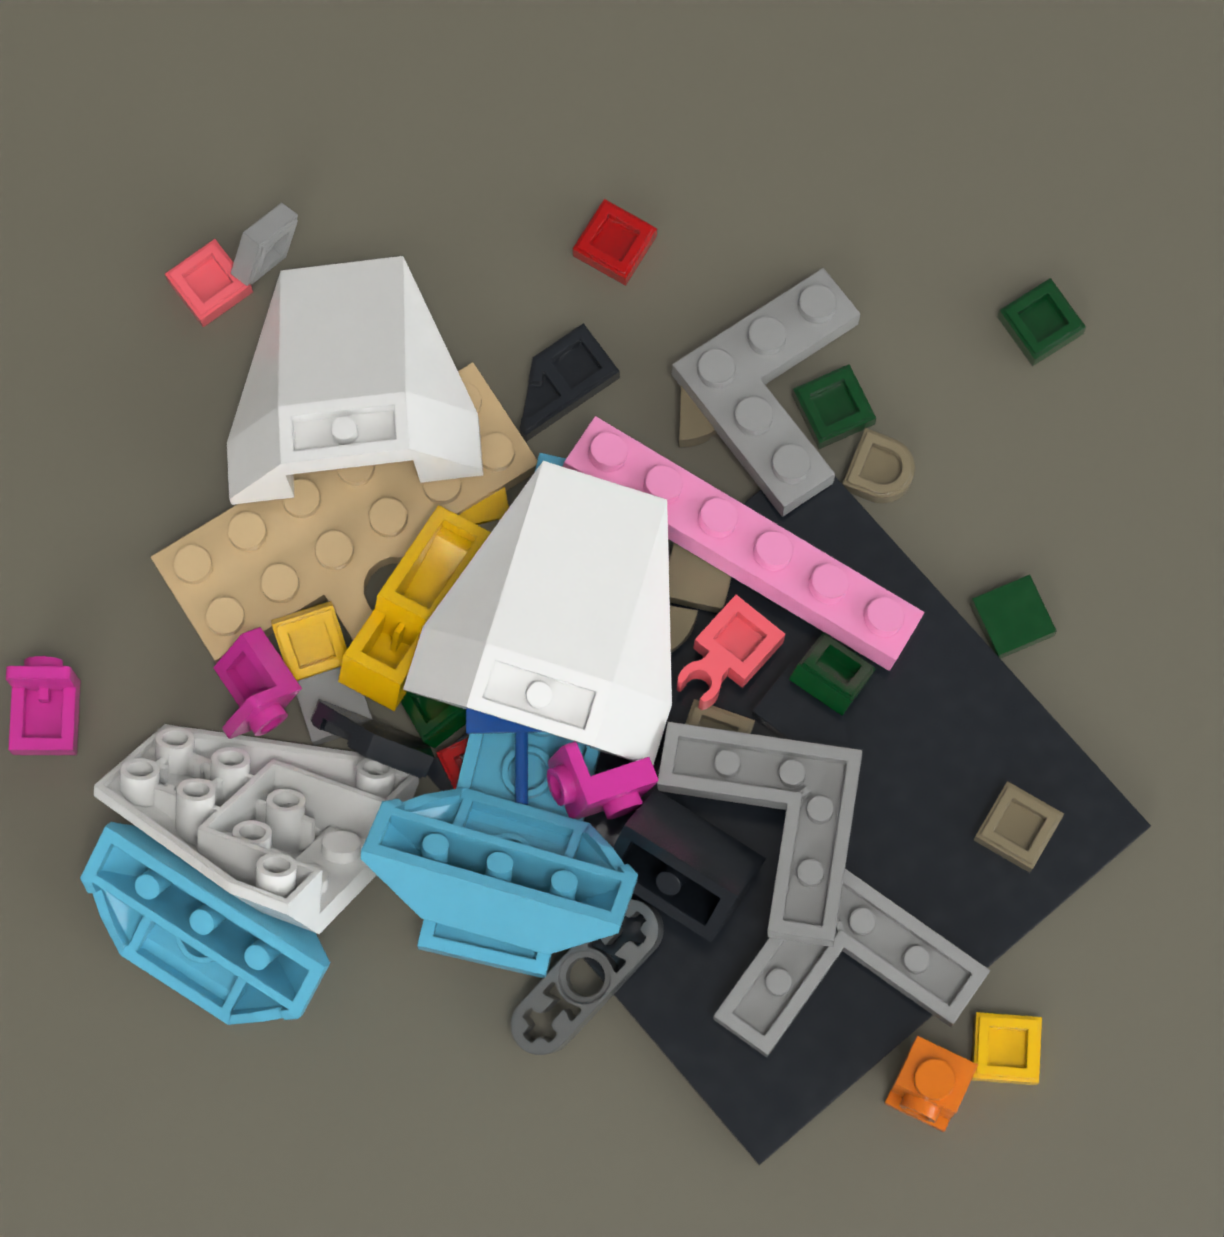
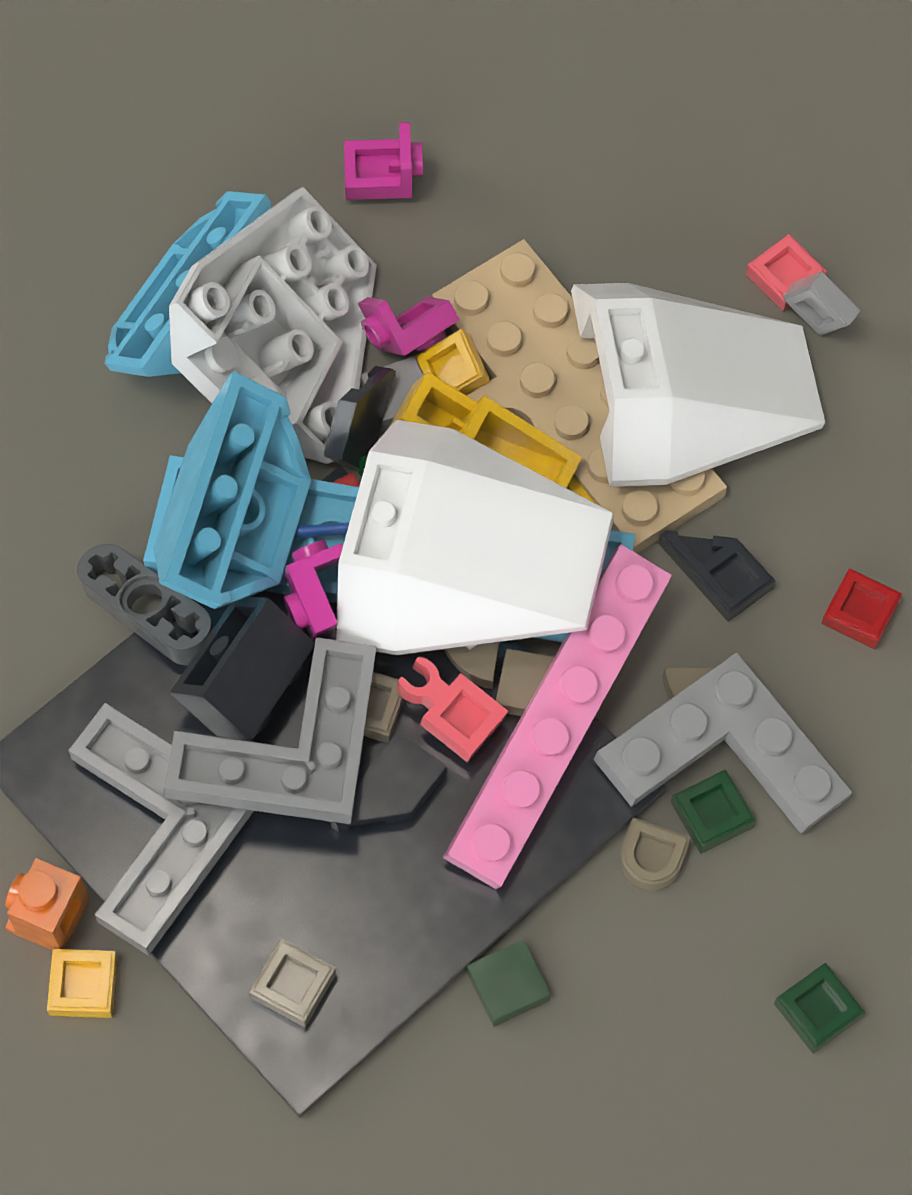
camera: 85 degrees right, 10 degrees down
(832, 673) = (434, 801): dark green tile -> none

